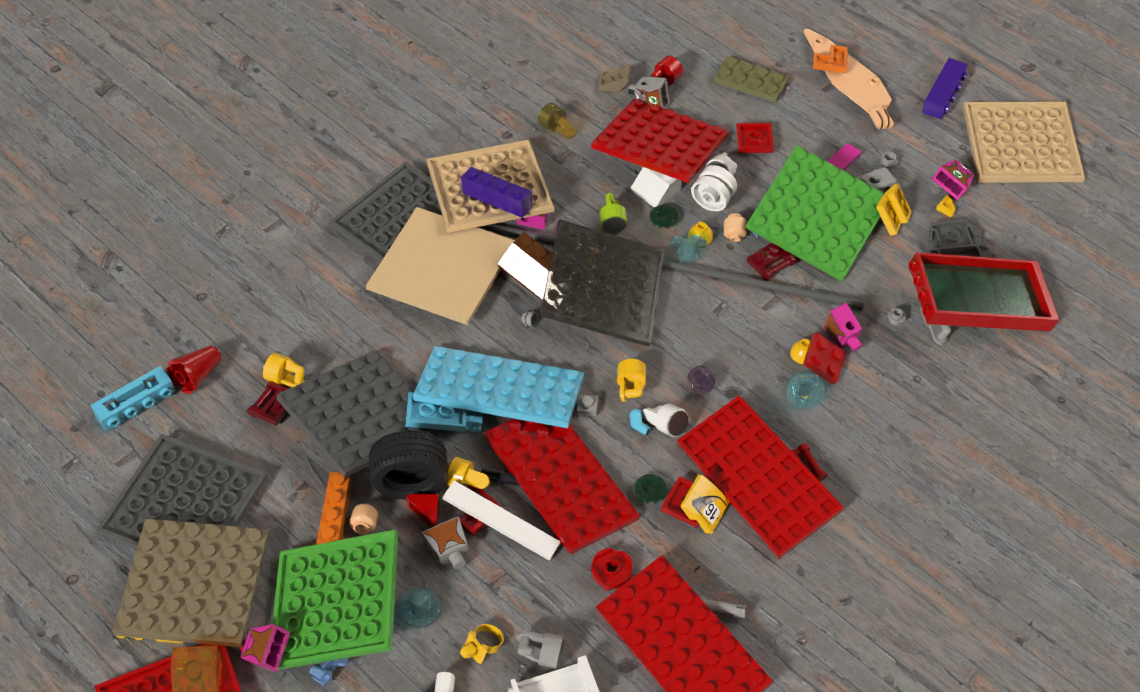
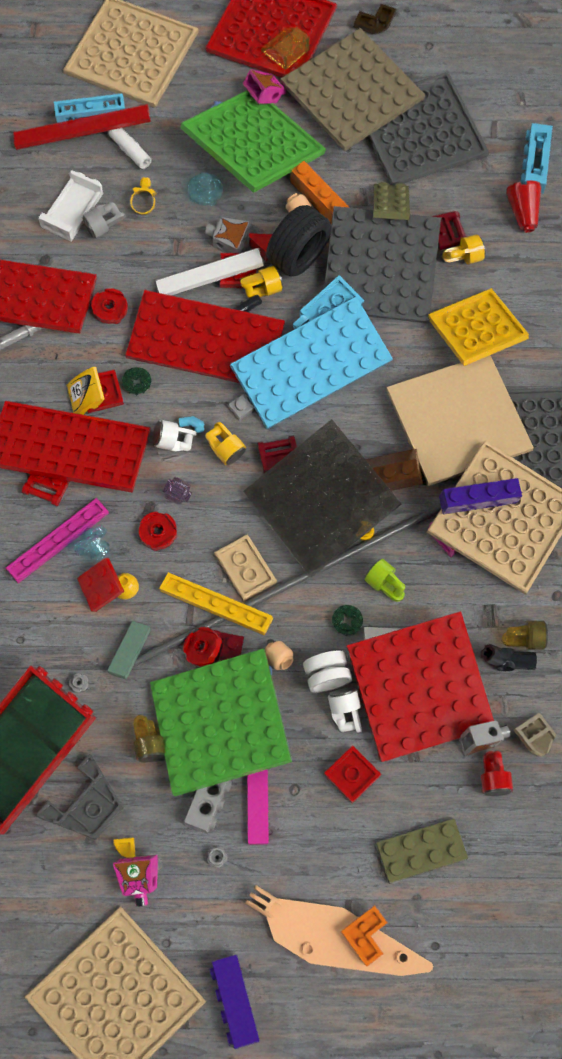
camera: 135 degrees right, 15 degrees up
(82, 634) = (377, 23): none -> dark brown plate
(293, 446) = (391, 201): none -> olive plate
(349, 310) = (478, 326): none -> yellow plate
(530, 318) = (353, 436): light grey plate -> none
(582, 120) = (508, 659): none -> black piece
(599, 344) = (272, 458): none -> dark red plate
(687, 248) = (297, 599): clear light blue plate -> none
(700, 299) = (245, 567): none -> tan tile
(702, 230) = (302, 629): yellow brick -> none
(743, 376) = (158, 520): none -> red plate
(749, 286) = (216, 603): none -> yellow plate
(776, 269) = (210, 650): none -> red plate
(828, 421) = (57, 540): none -> dark pink tile
(843, 328) = (106, 623): dark pink torso -> none
(855, 299) = (129, 650): none -> sand green tile
(880, 240) = (148, 744): none -> clear yellow piece
(894, 209) = (163, 786): yellow slope -> none

